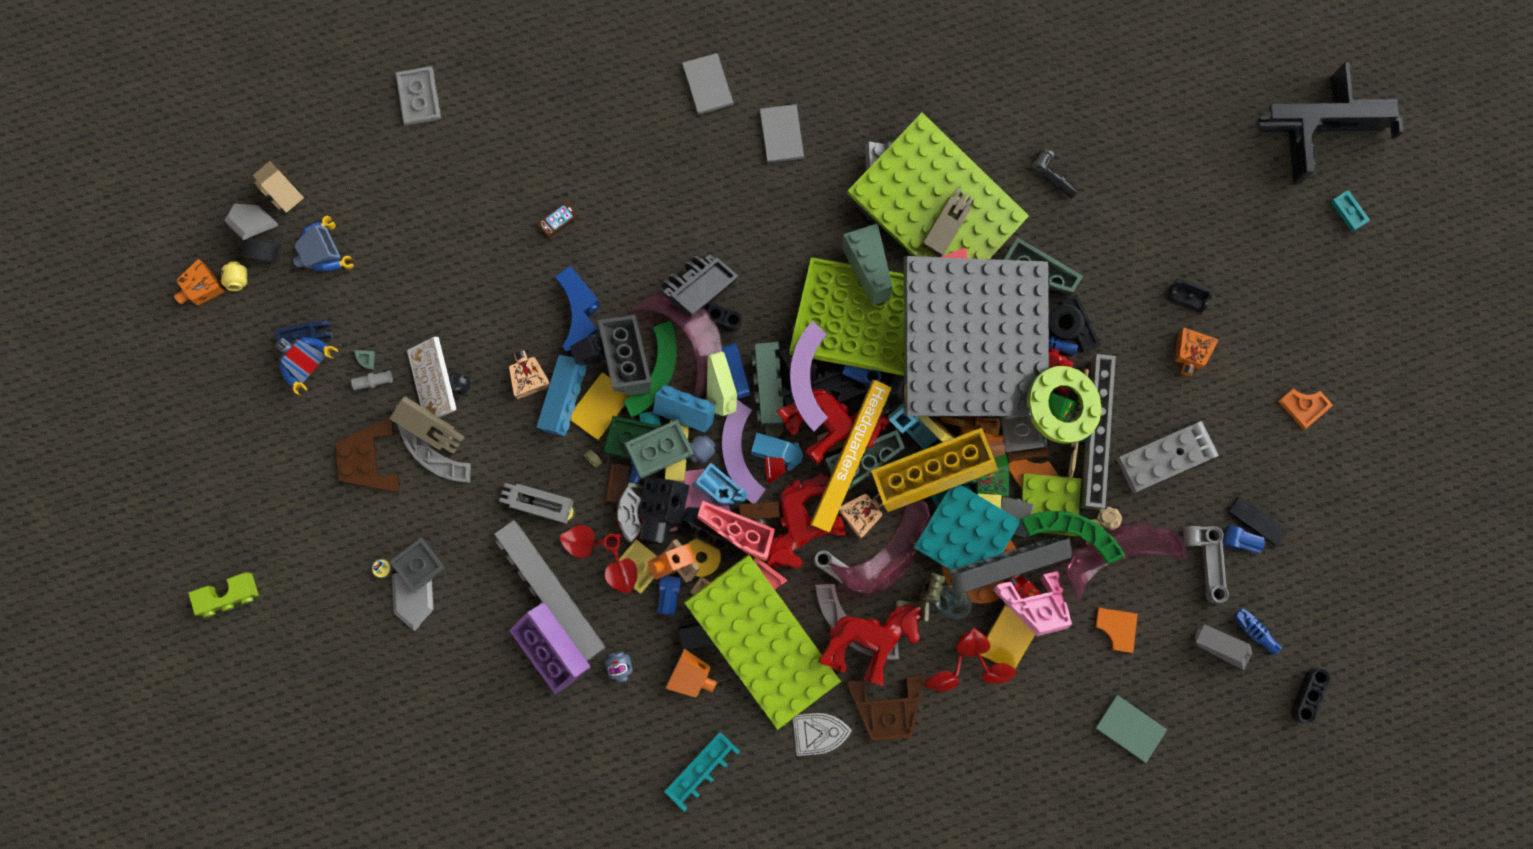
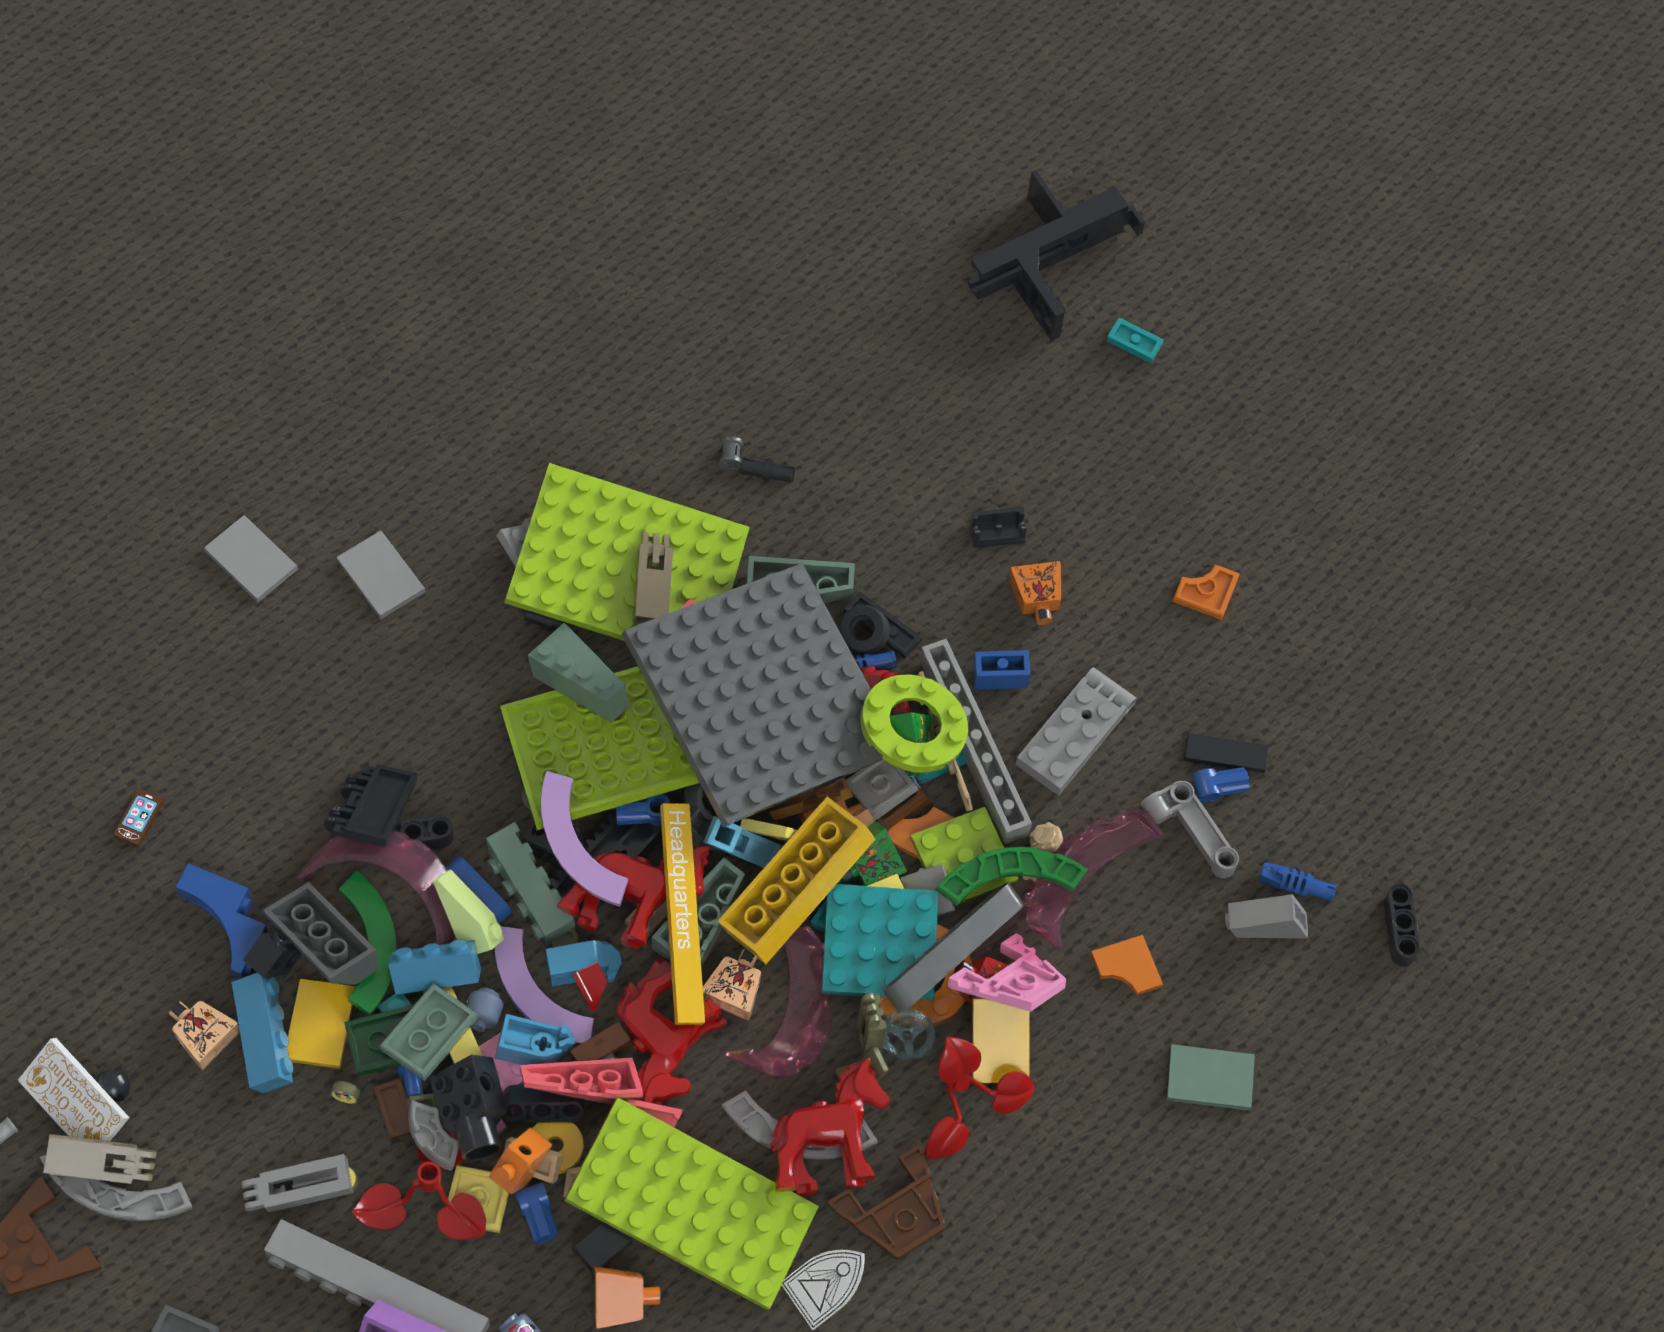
camera: 30 degrees left, 15 degrees down
(827, 568) = (730, 1071): light grey piece -> none
(1140, 393) = (1001, 669): none -> blue brick

